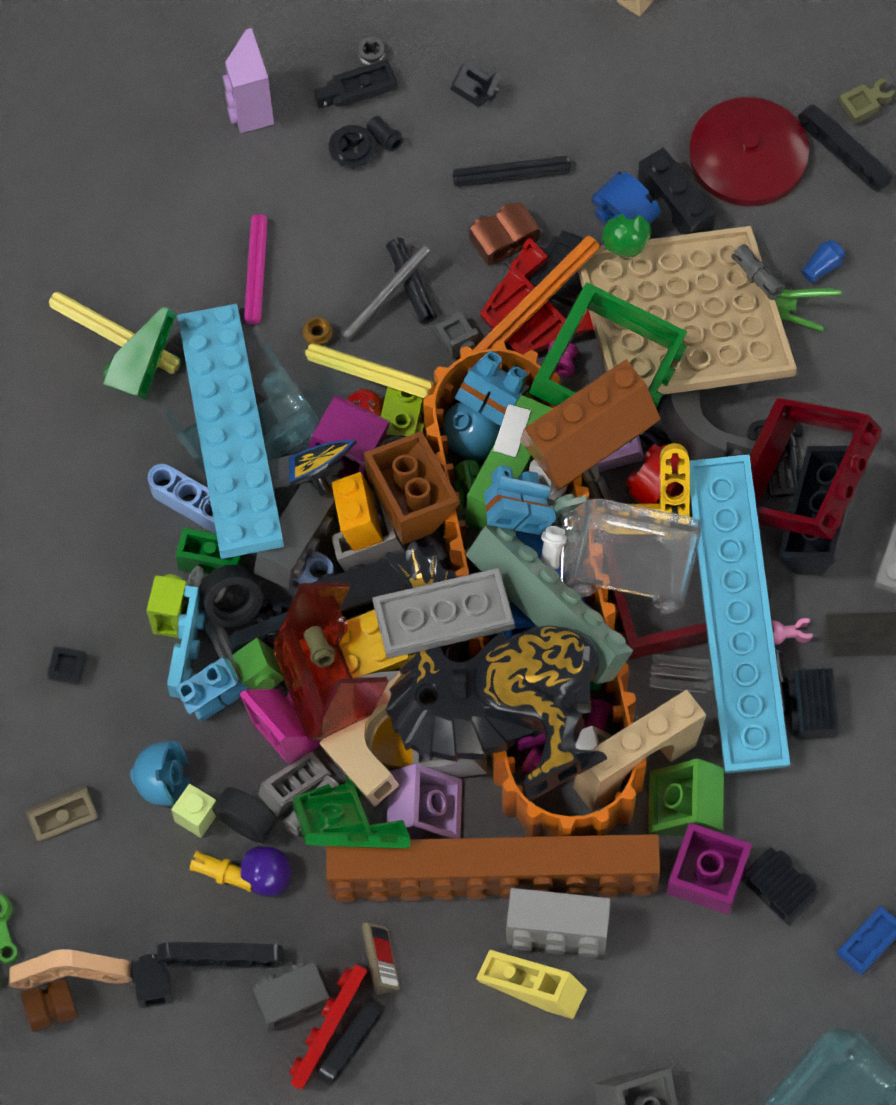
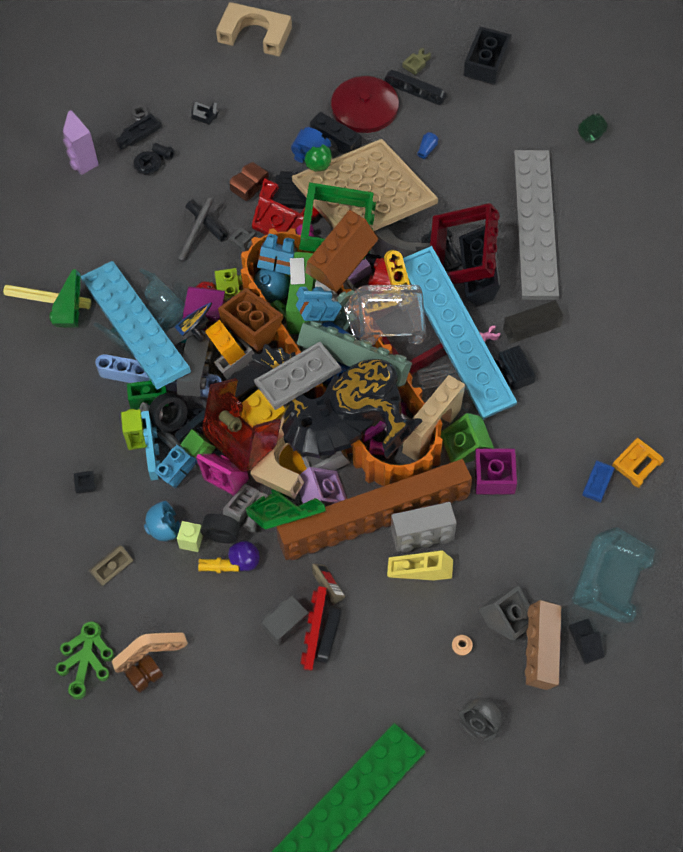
camera: 20 degrees left, 5 degrees down
(151, 982) = (200, 640): black brick -> none
(220, 954) = (235, 610): black beam -> none
(255, 269) = (116, 240): dark pink axle -> none
(315, 324) = (163, 257): pearl gold plate -> none
(369, 370) = (202, 270): light yellow axle -> none
(511, 171) = (240, 150): black axle -> none
(541, 293) = (284, 199): orange axle -> none
(553, 540) = (343, 322): white pin -> none
(758, 272) = (396, 157): dark grey pin -> none
(780, 885) = (537, 468): black brick -> none
(788, 300) = (417, 167): bright green plant -> none

